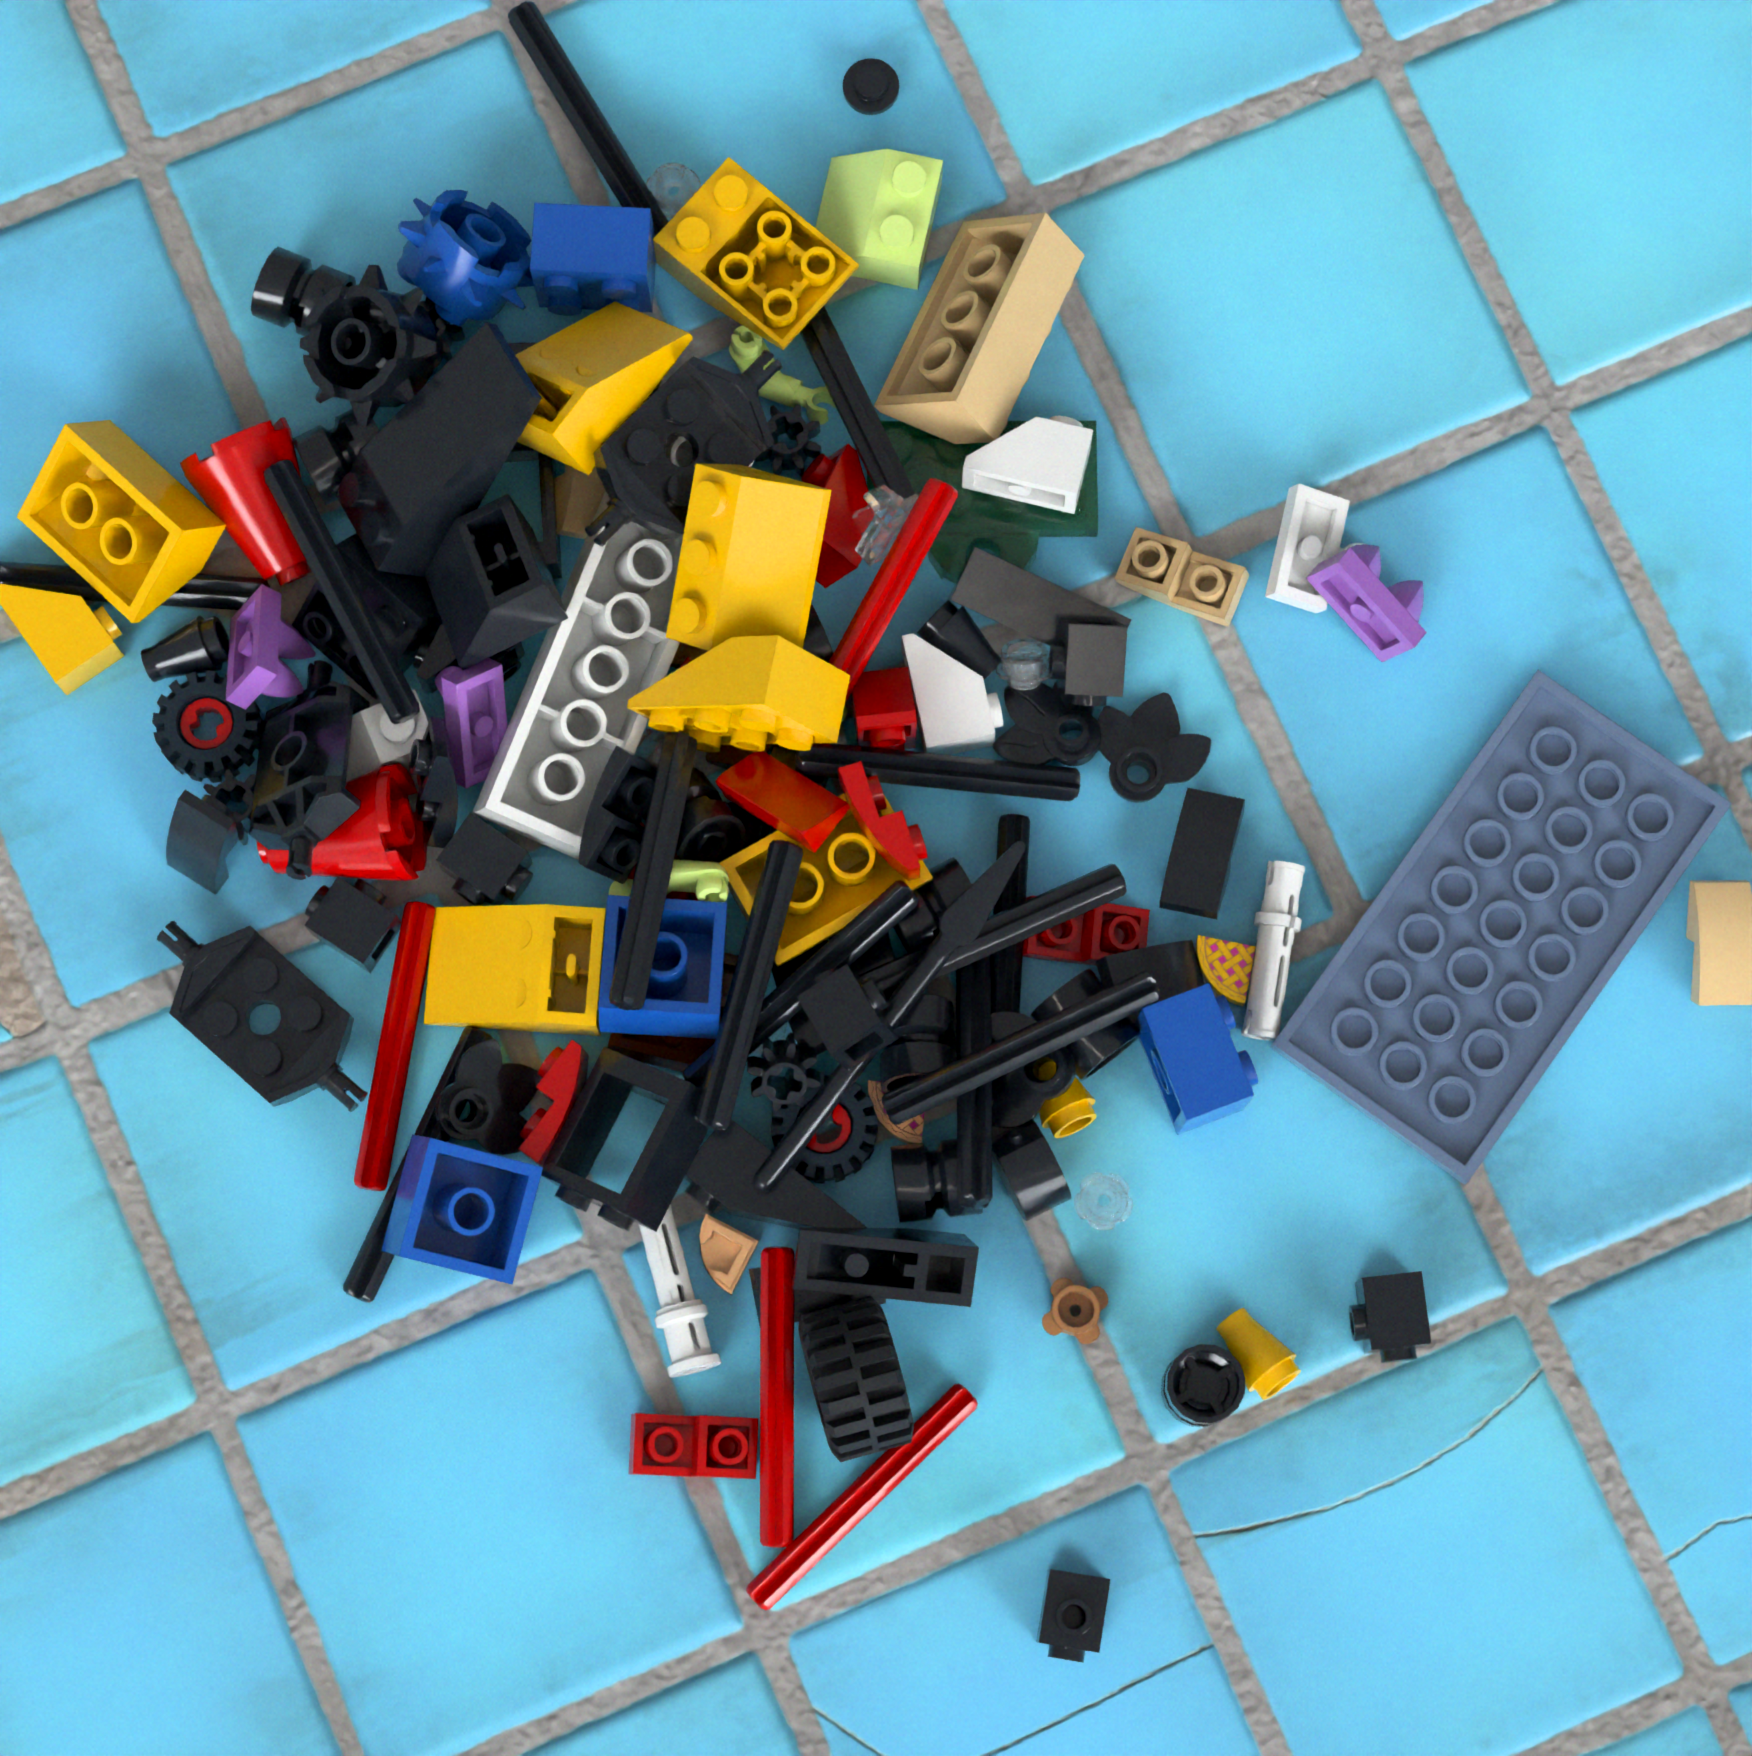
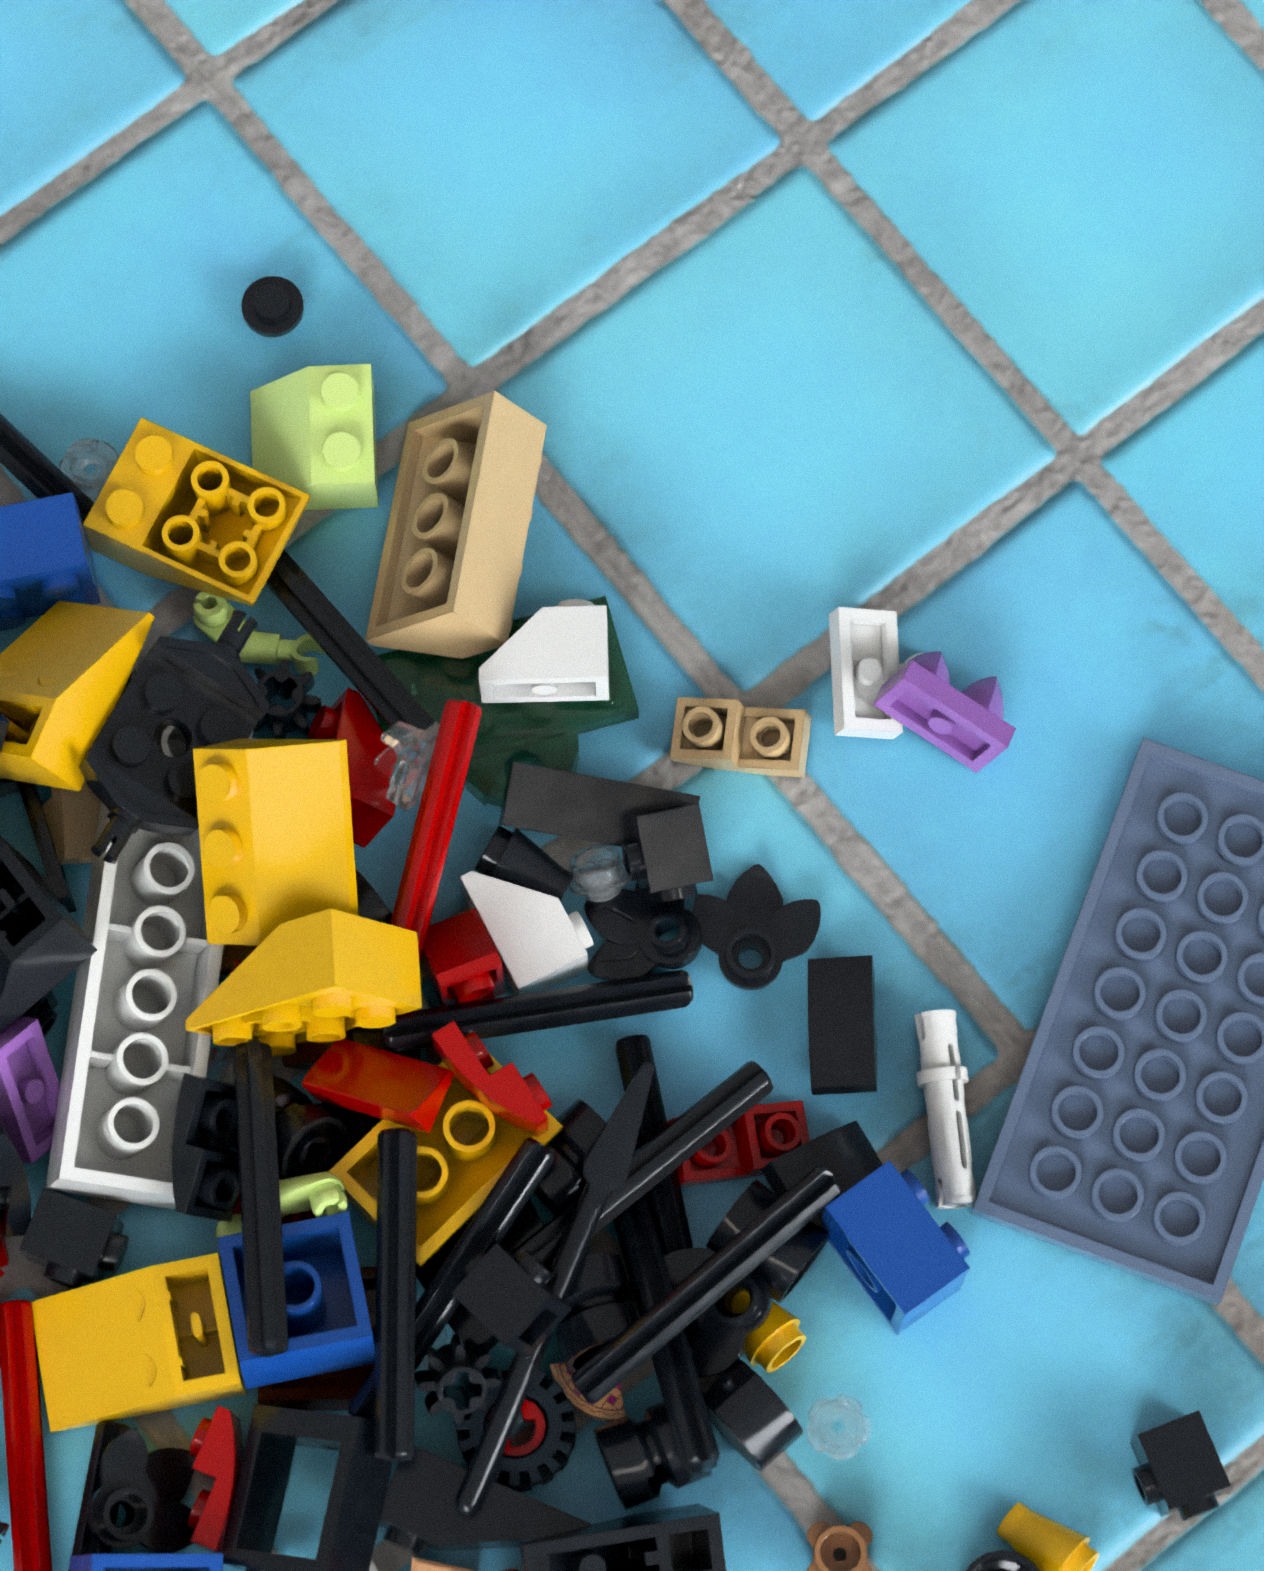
camera: 15 degrees left, 5 degrees down
(1226, 966) = (900, 1138): yellow tile -> none

